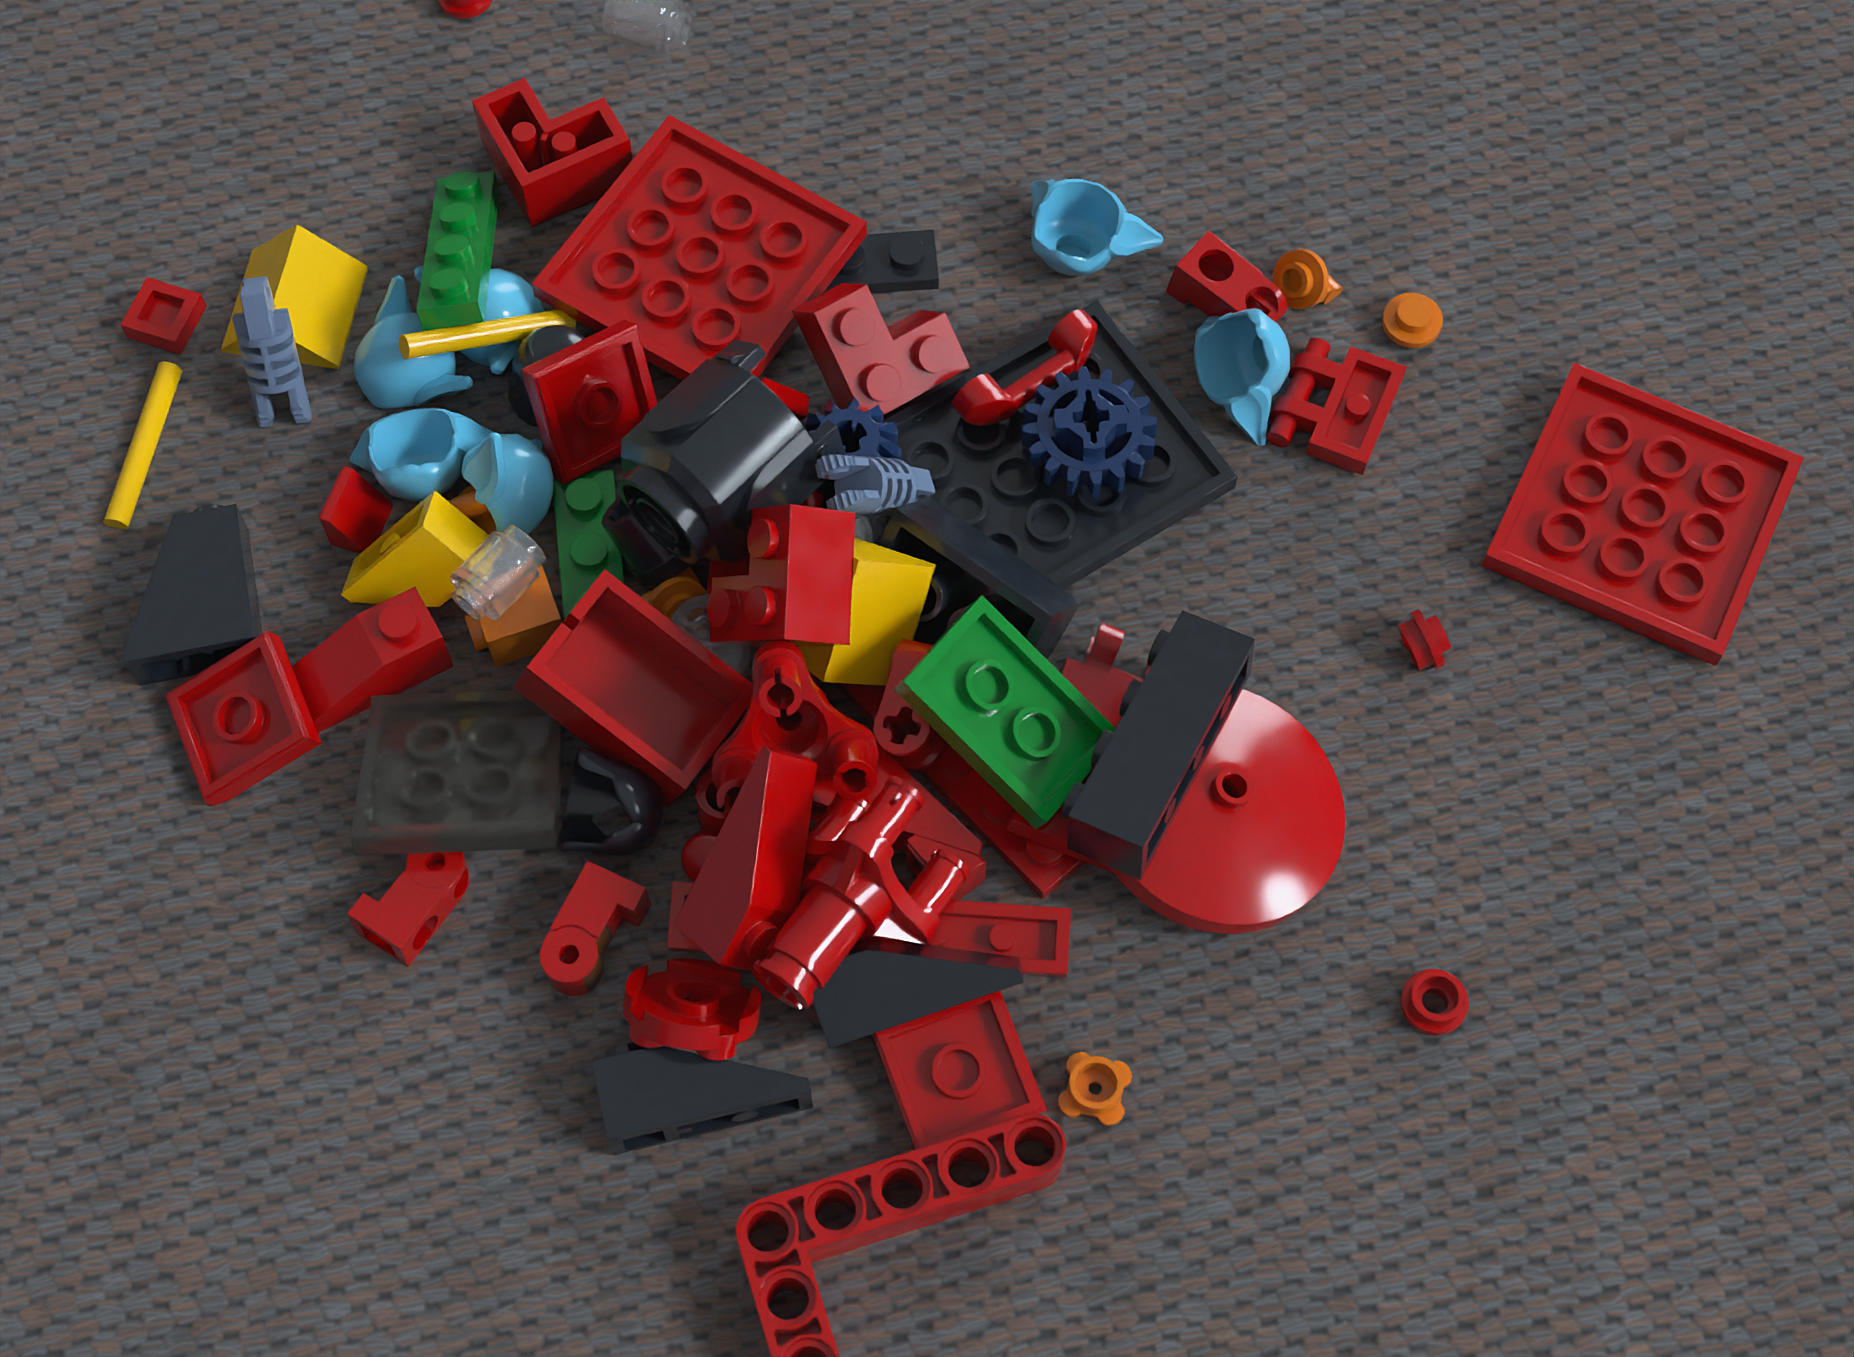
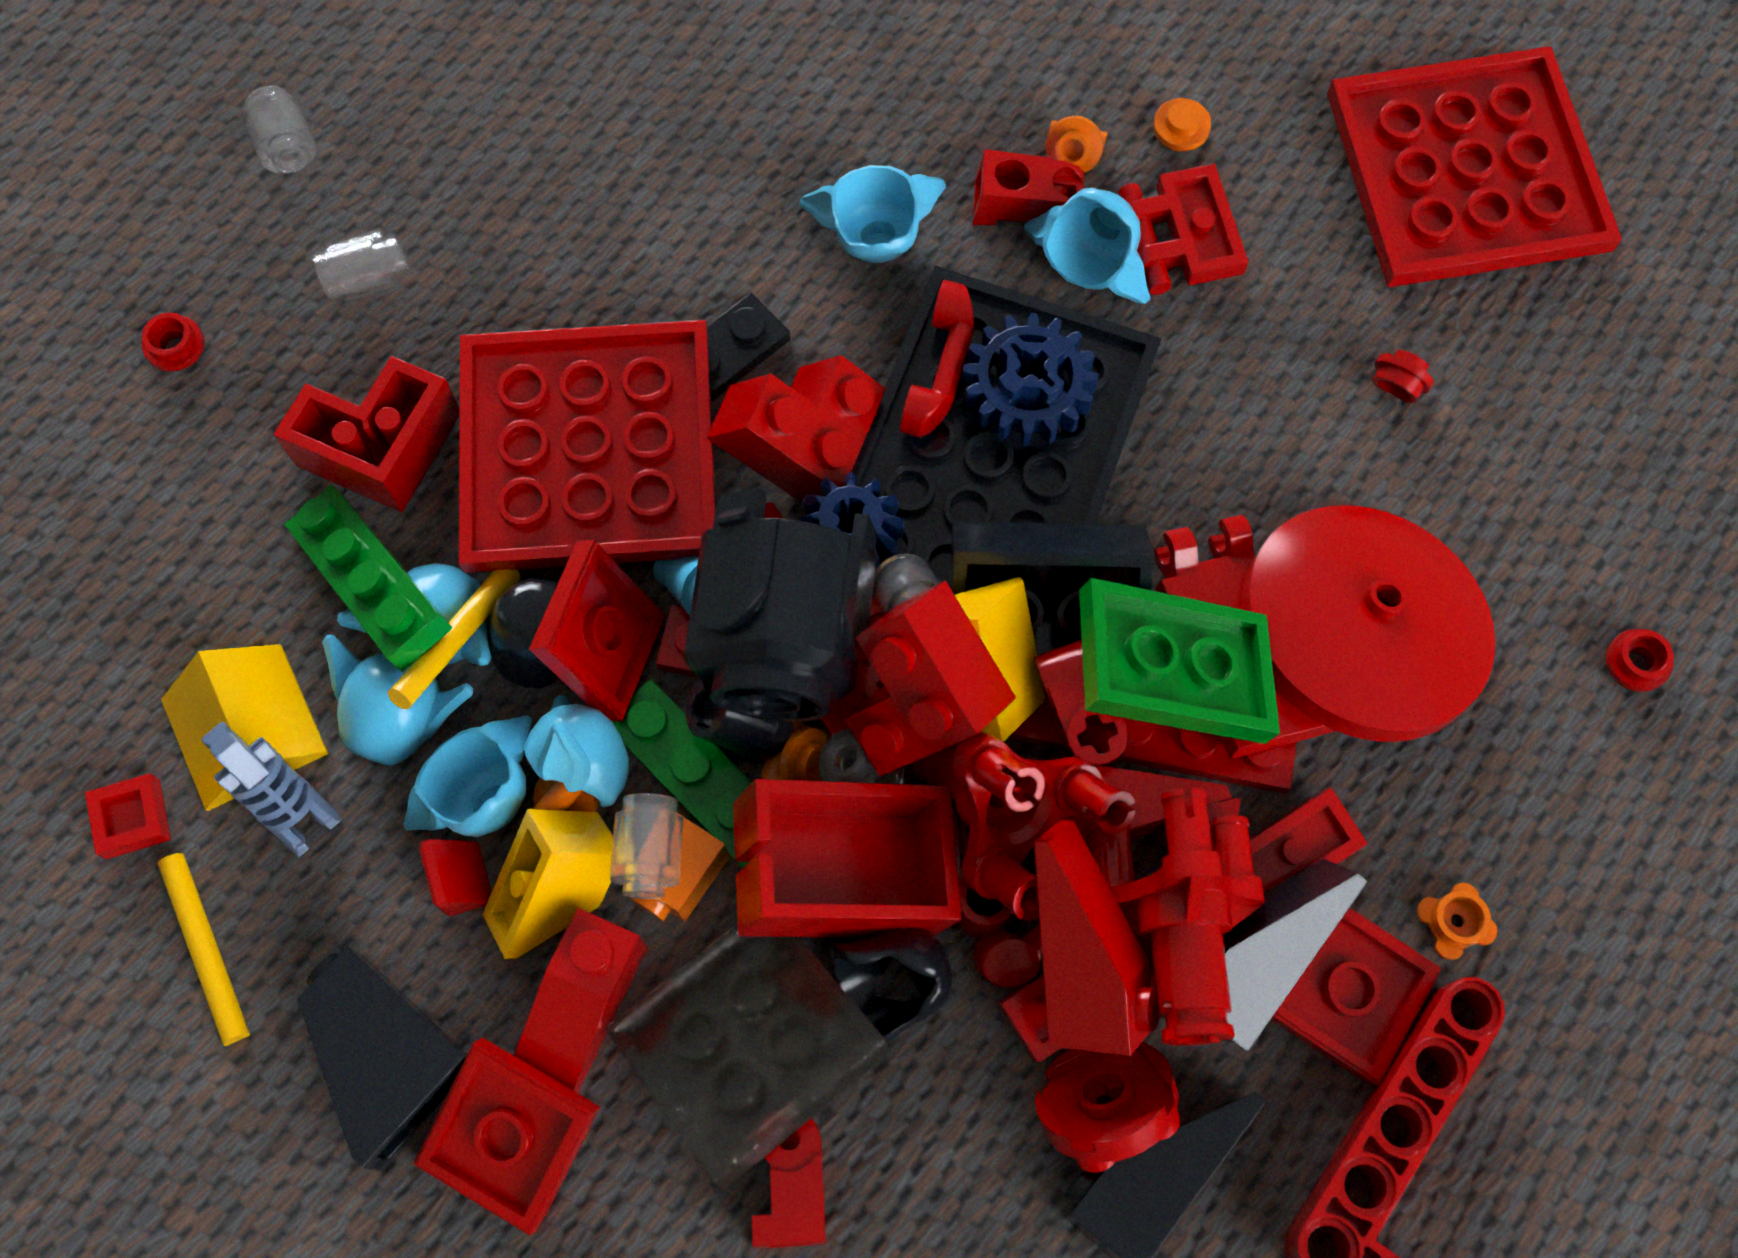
camera: 35 degrees left, 5 degrees up
(587, 925) = (962, 1123): red leg -> none
(873, 483) = (917, 545): sand blue hinge -> none
(1158, 744) = (1317, 604): black brick -> none

